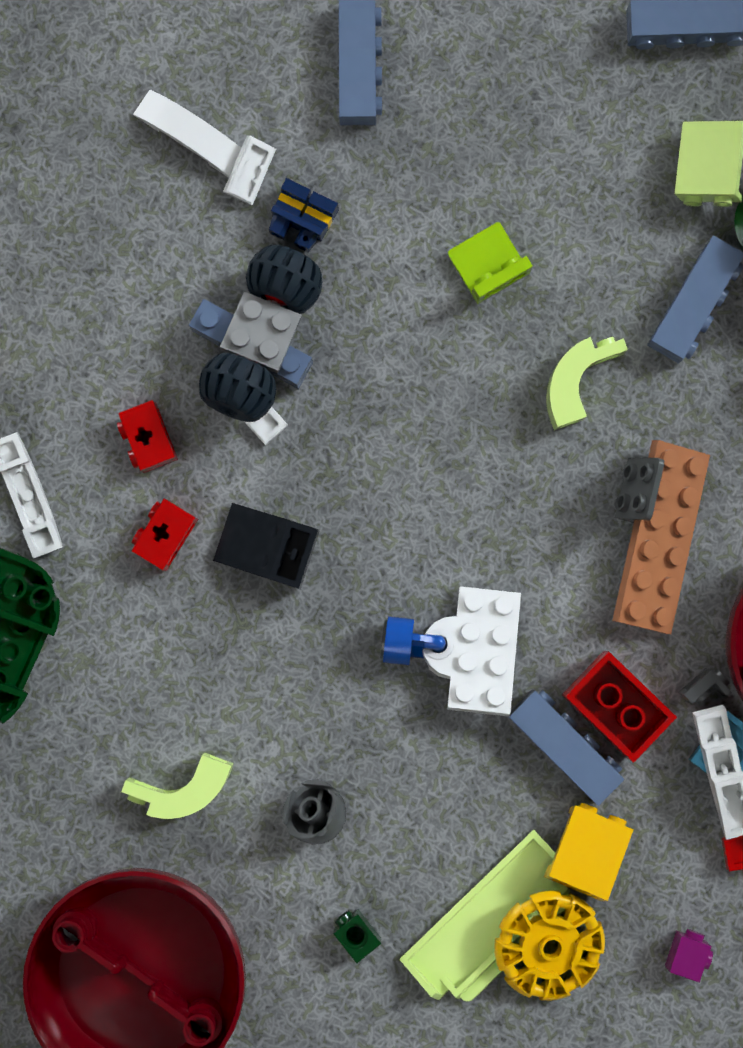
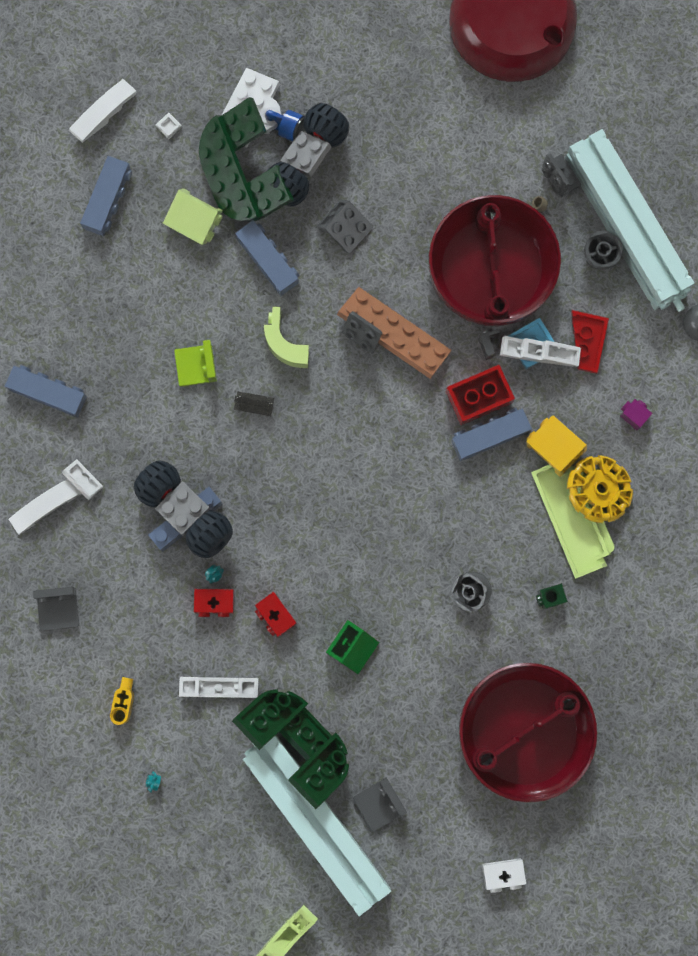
camera: 75 degrees left, 5 degrees down
(47, 215) = (57, 608): none -> dark grey bracket
(161, 666) = (352, 647): none -> green slope
(178, 803) = (434, 656): yellowish green arch -> none
(188, 419) = (213, 573): none -> teal plate
(266, 545) = (306, 558): black slope -> none
(268, 426) = (238, 530): white tile -> none
(304, 212) = (128, 454): dark blue hips -> none
(466, 372) = (253, 403): none -> clear smoke hinge
(469, 649) = (413, 466): white plate -> none

